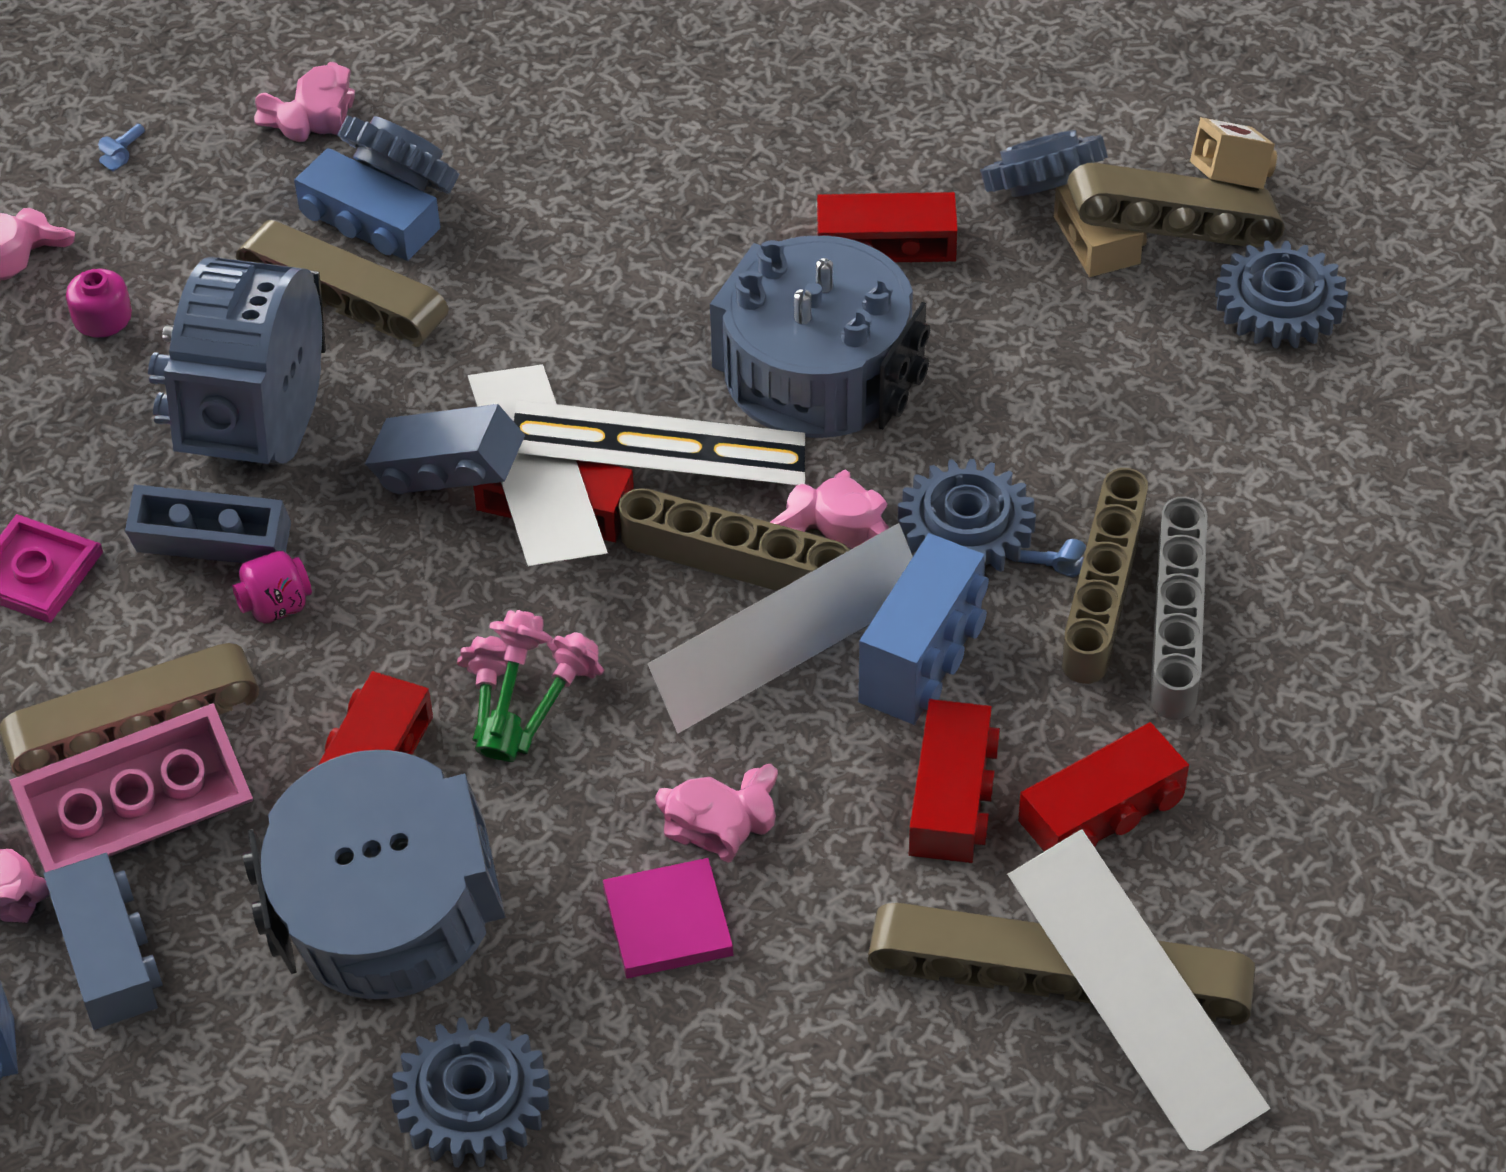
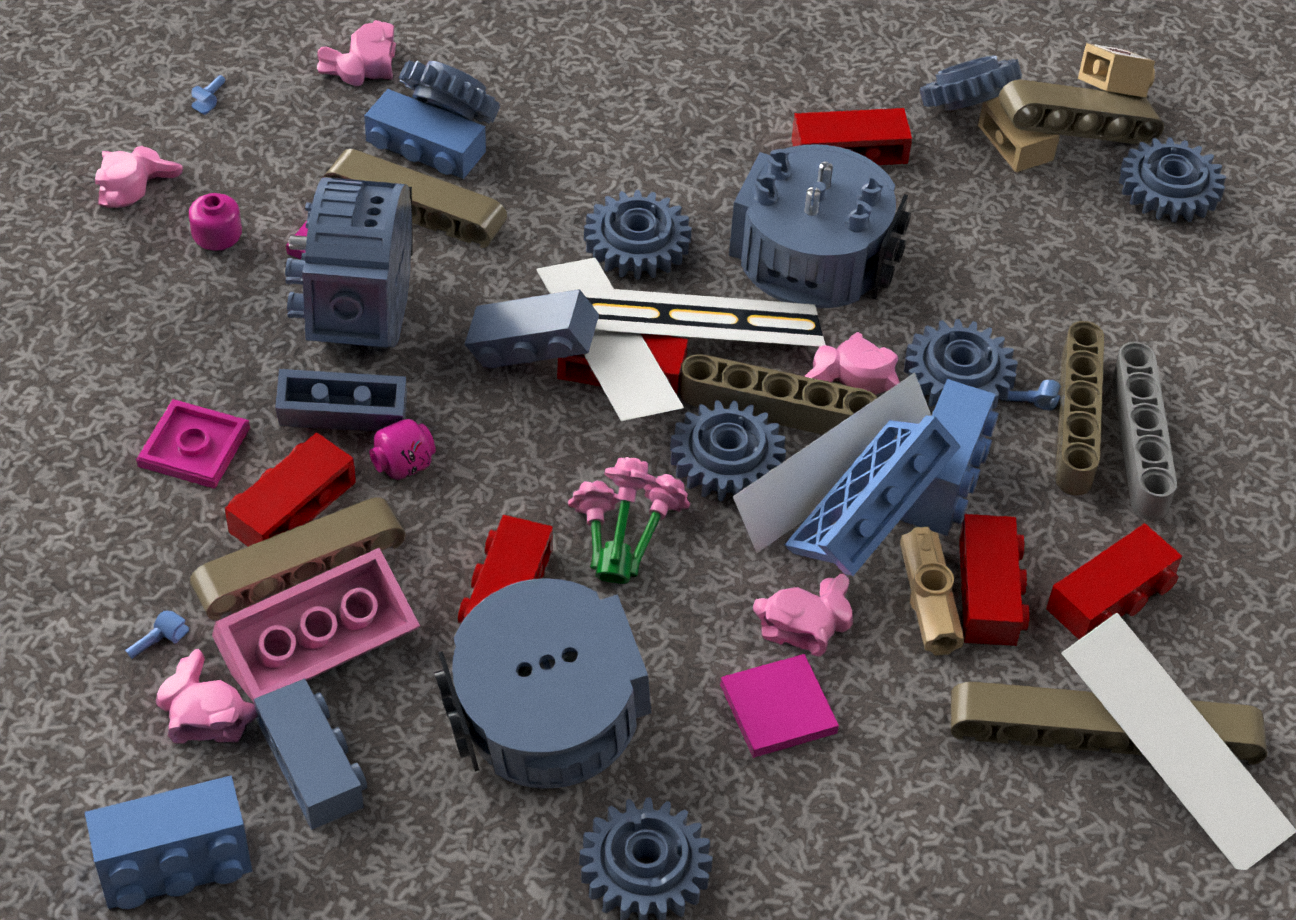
camera: 10 degrees left, 0 degrees up
(134, 630) = (291, 491): none -> red brick
(601, 337) = (637, 234): none -> sand blue gear
(657, 603) = (725, 448): none -> sand blue gear
(817, 669) = (887, 493): none -> medium blue fence
(876, 812) = (931, 591): none -> tan piece

